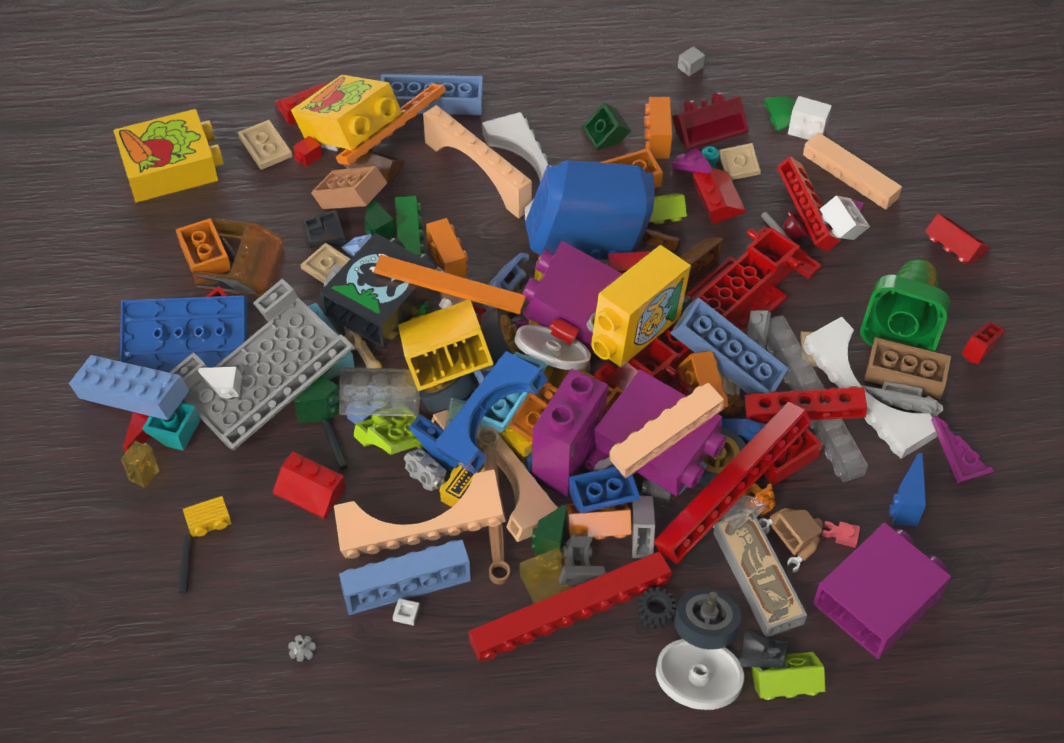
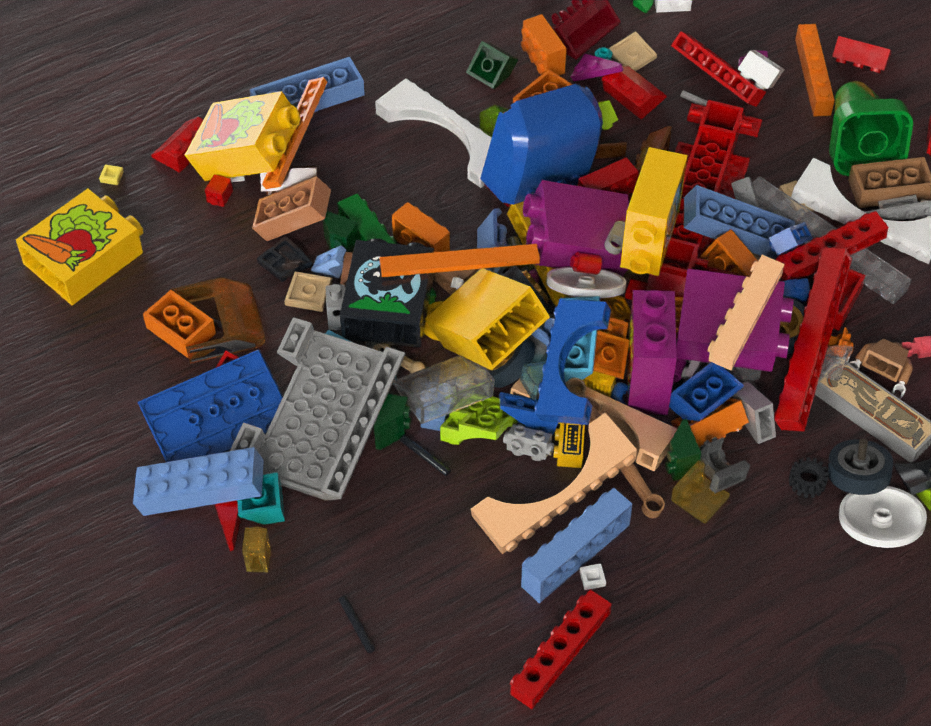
camera: 25 degrees left, 0 degrees up
(207, 516) = (351, 571): yellow brick -> none
(223, 380) = (287, 438): white slope -> none
(233, 106) = (111, 174): none -> light yellow tile
(265, 144) = (170, 200): tan plate -> none
(301, 648) = (517, 651): light grey plant -> none
(309, 485) = (429, 501): red slope -> none
(333, 672) = (531, 692): none -> red brick
(512, 185) = (445, 148): light nougat arch -> none
(569, 606) = (733, 510): red brick -> none
(770, 381) = (790, 238): none -> slope
(794, 226) = (719, 93): dark red hat -> none
(852, 170) = (735, 25): light nougat brick -> none
(901, 234) = (814, 70): none -> orange brick

